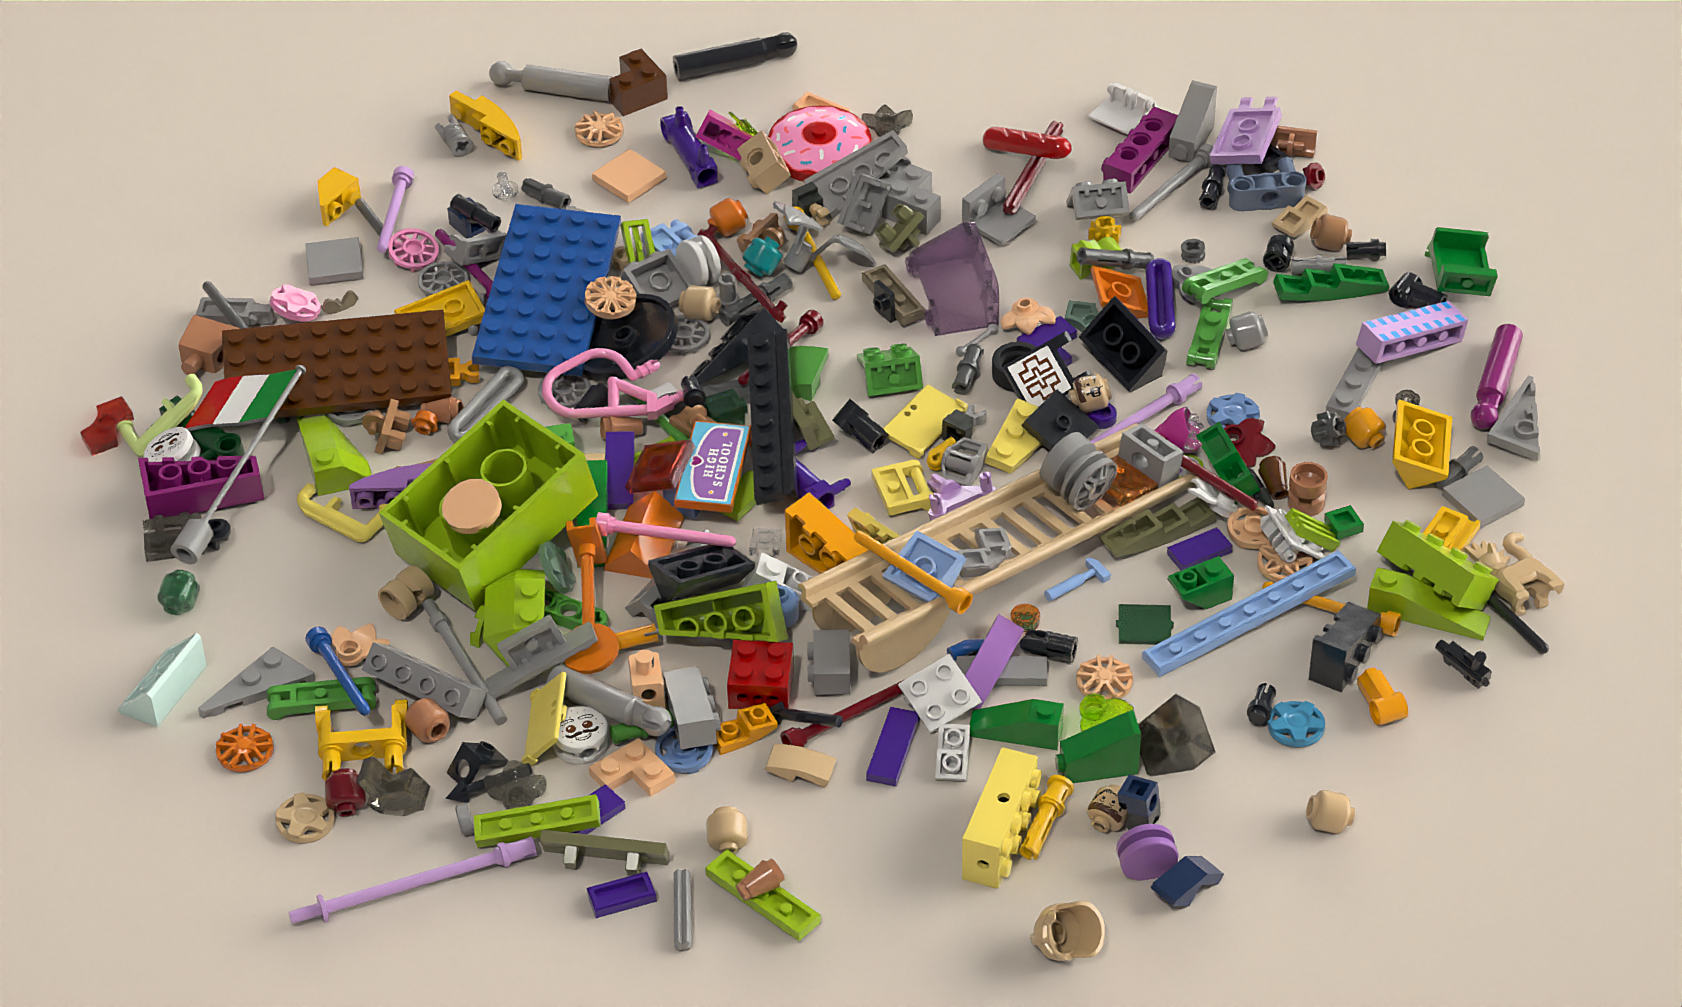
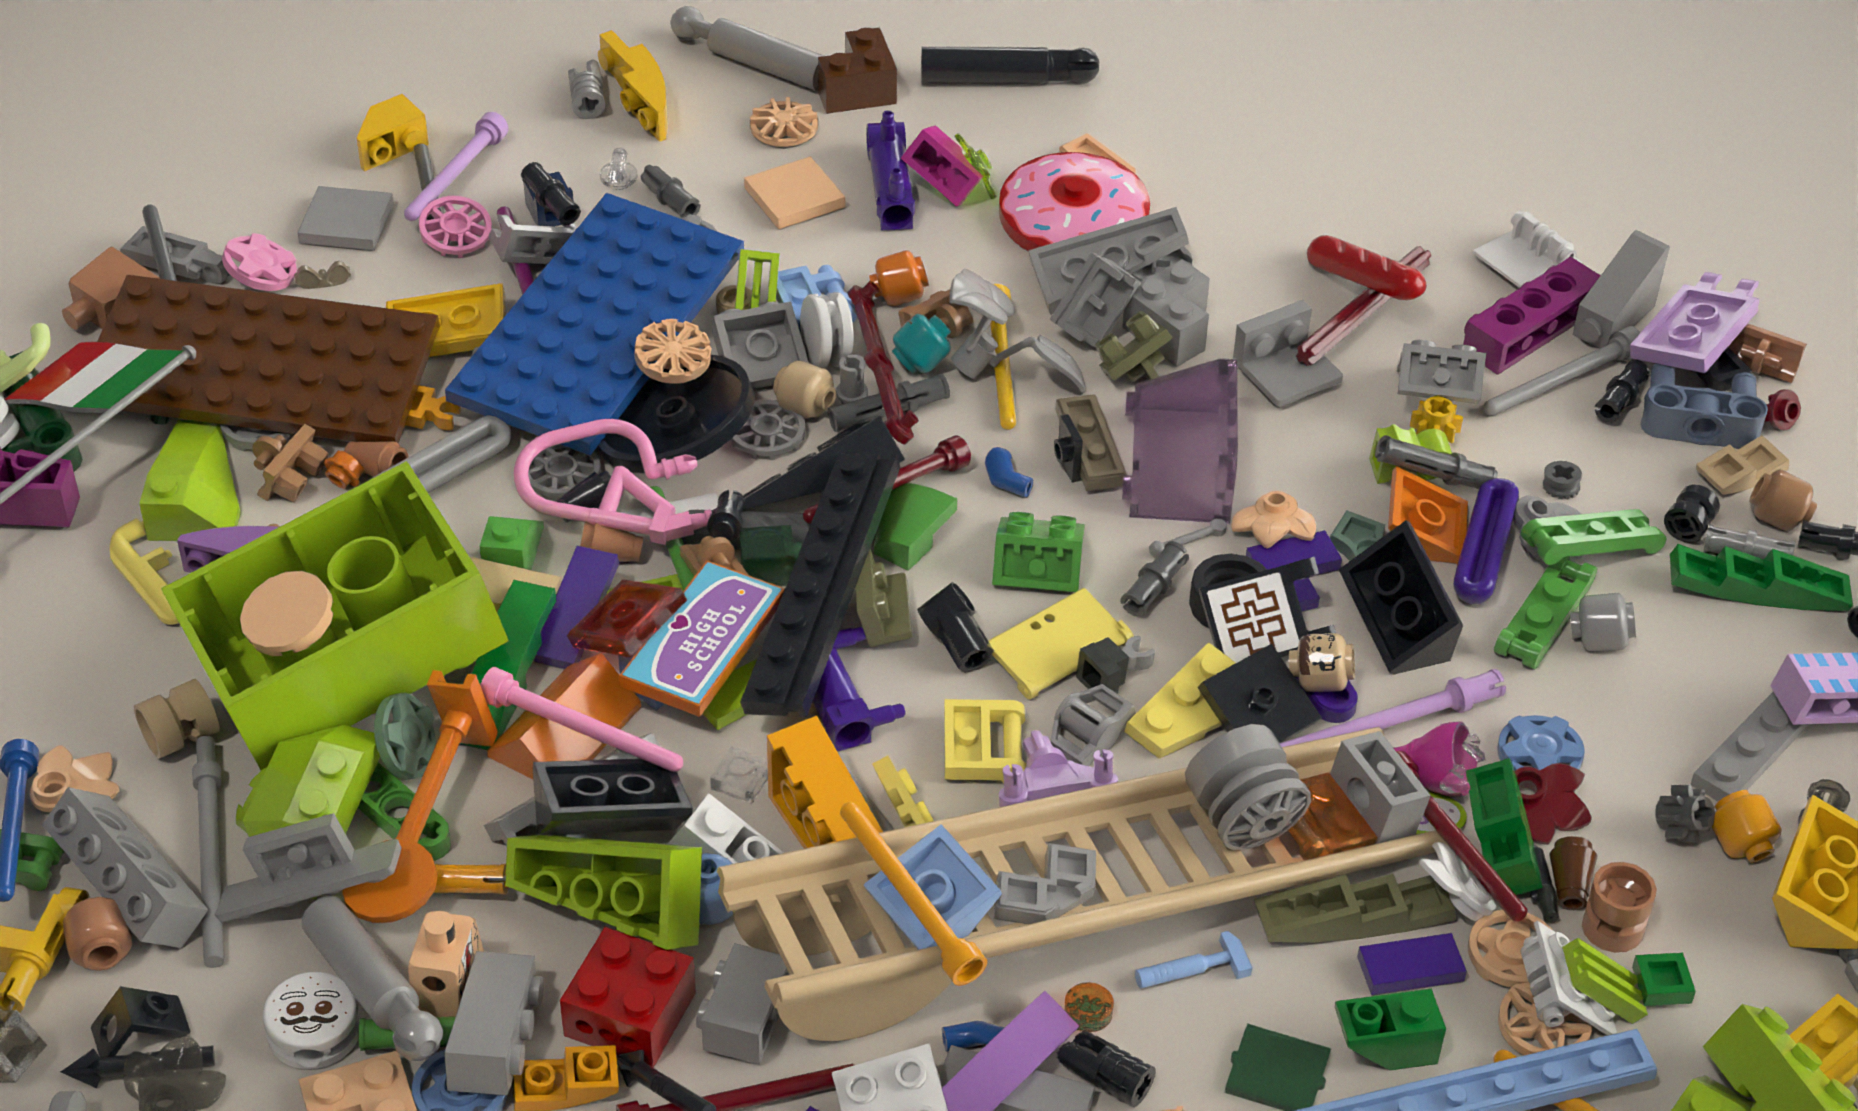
camera: 15 degrees right, 0 degrees up
(441, 279) = (474, 273): light grey wheel -> none
(545, 718) = (274, 971): light yellow door -> none
(763, 162) = (981, 214): tan brick -> none
(811, 202) = (1025, 284): pearl dark grey piece -> none
(847, 328) = (1002, 474): none -> blue arm
(887, 120) = (1184, 195): clear smoke plate -> none
(935, 455) = (1050, 701): yellow arm -> none

